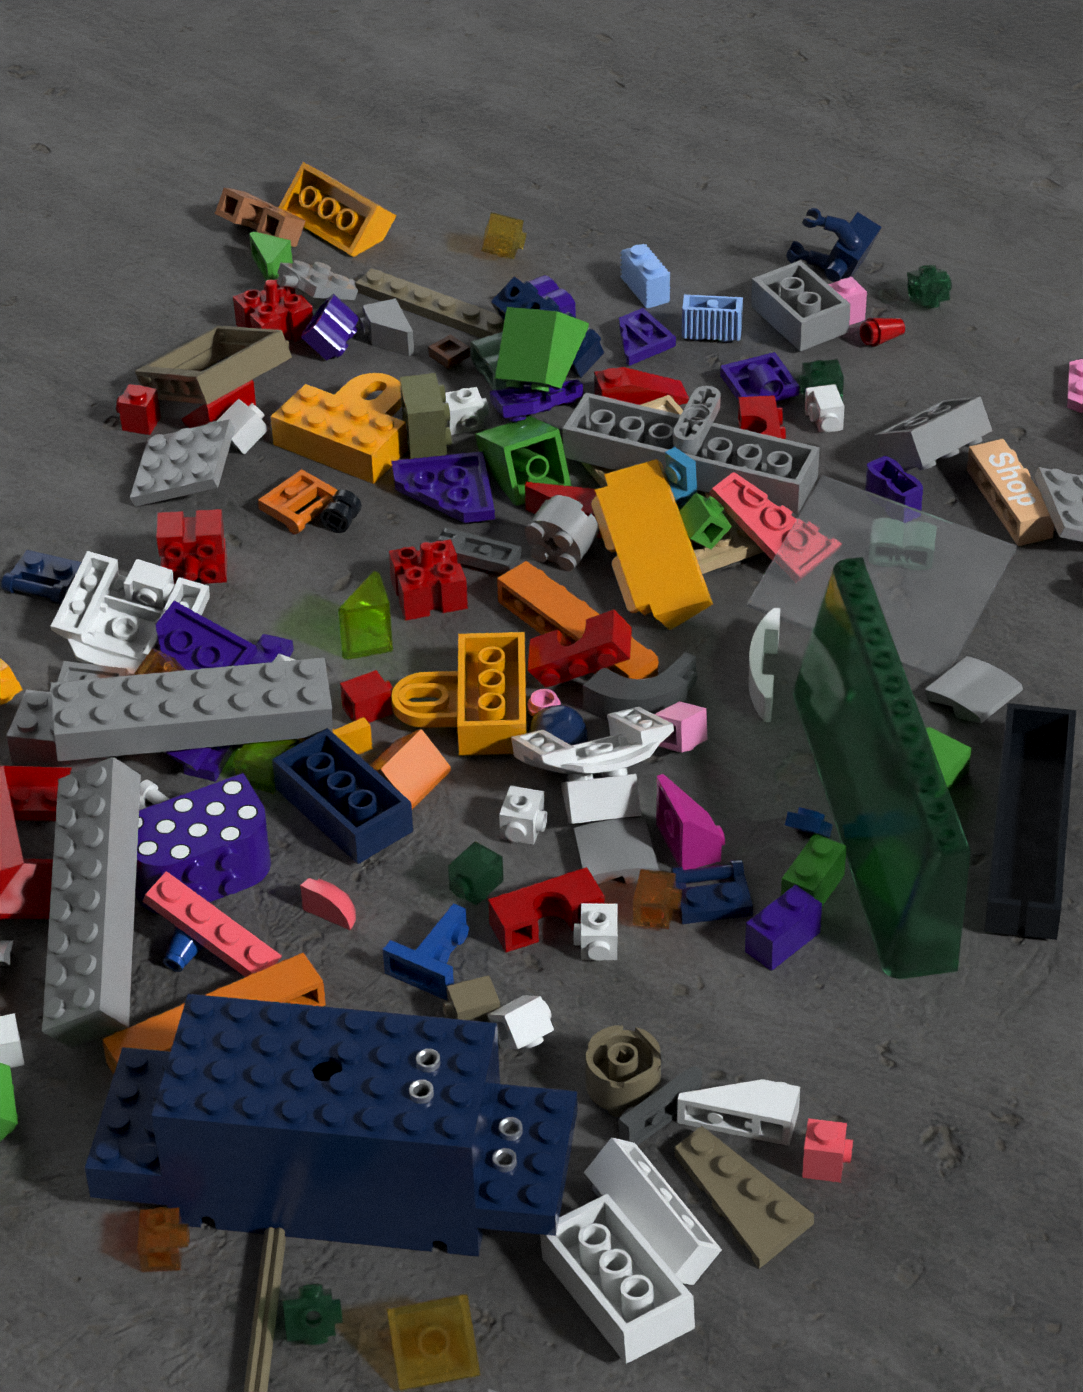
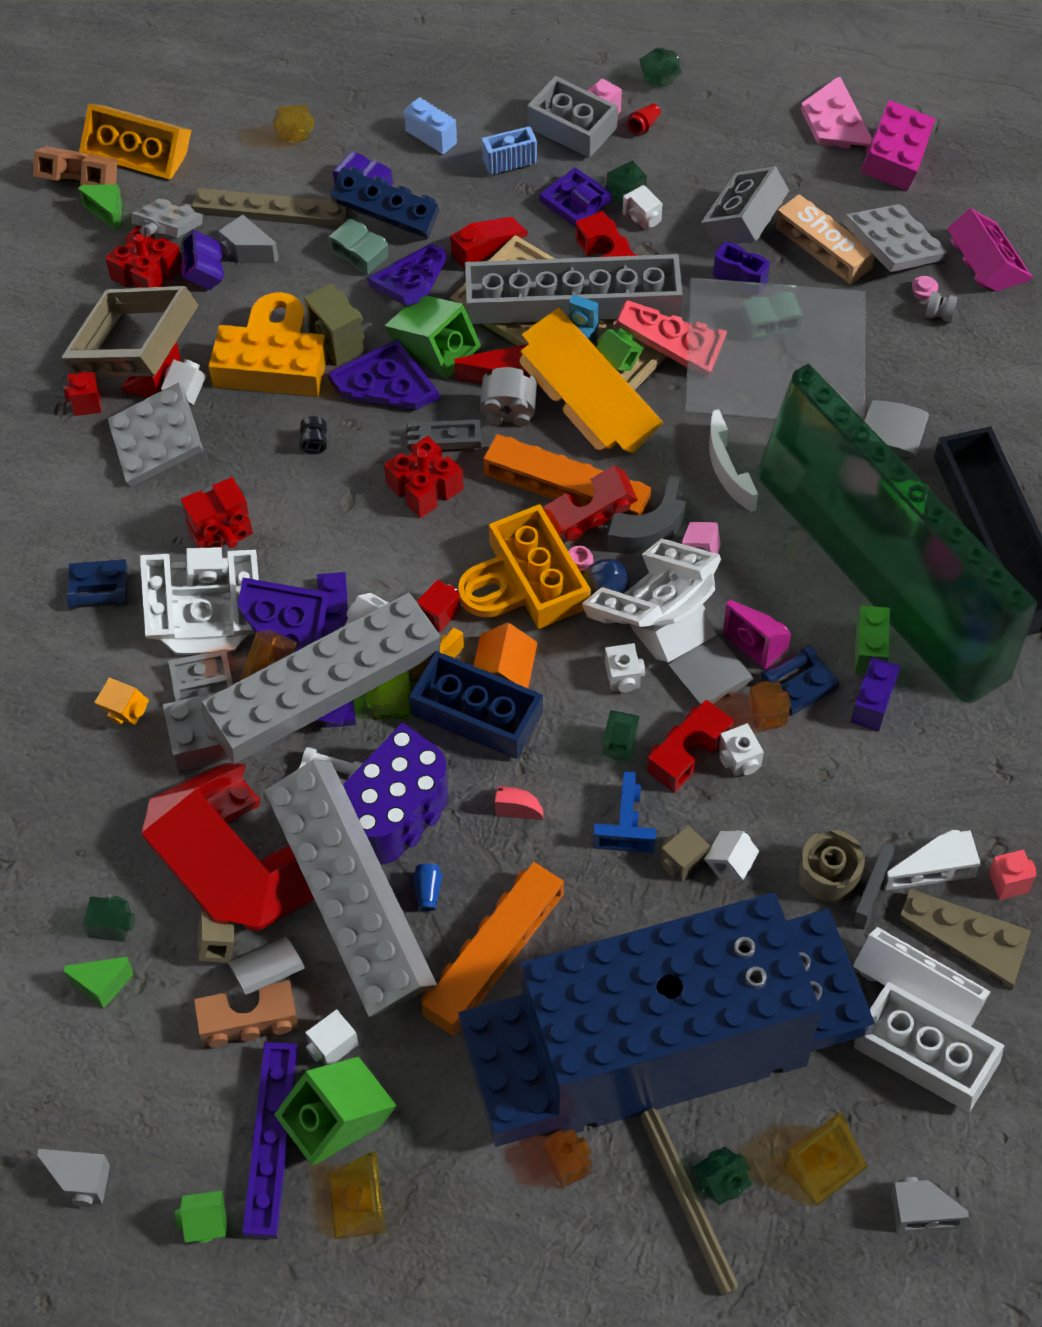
camera: 25 degrees left, 15 degrees up
(209, 926) = (447, 867): coral plate -> none
(294, 494) = (263, 433): orange plate -> none
(366, 620) = (405, 533): clear neon green slope -> none
(449, 351) = (310, 249): reddish brown plate -> none
(466, 410) = (364, 299): white brick -> none
(538, 348) = (400, 232): bright green slope -> none
(643, 336) = (459, 184): dark purple wing -> none
(698, 428) = (566, 268): light grey beam -> none
(809, 822) = (847, 596): blue plate -> none
(849, 250) = (582, 51): dark blue torso -> none

